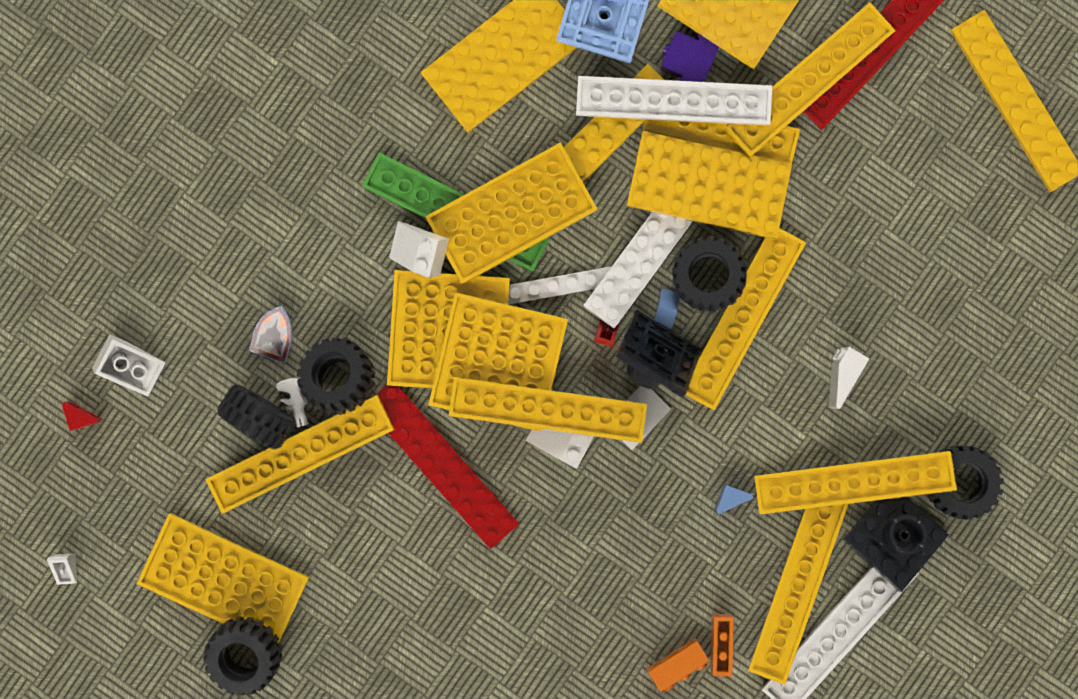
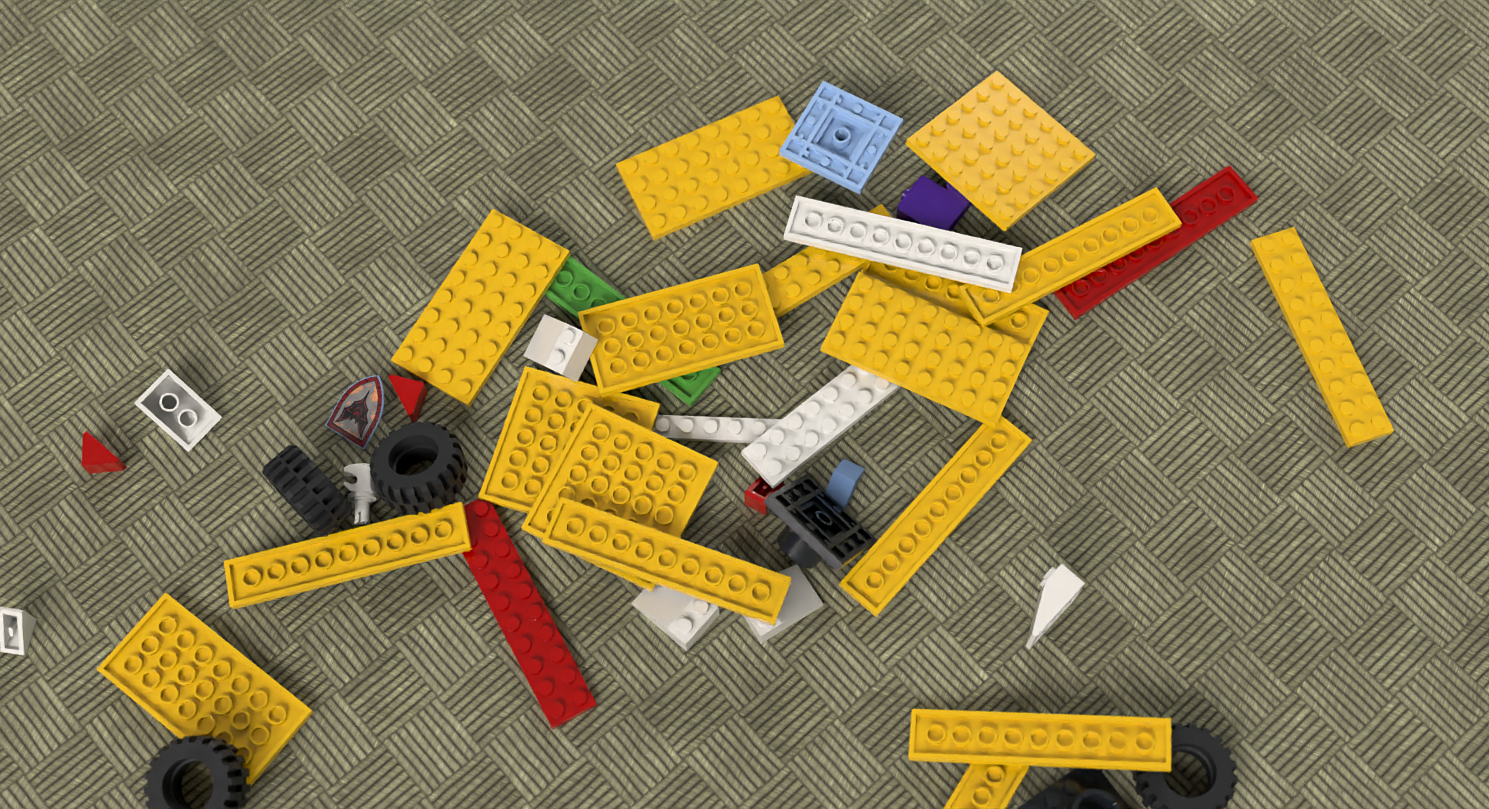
camera: 20 degrees right, 20 degrees down
(309, 312) = (411, 393): none -> red slope
(345, 225) = (481, 307): none -> yellow plate
(709, 249) = (898, 421): black tyre -> none
(730, 498) = (876, 730): medium blue slope -> none

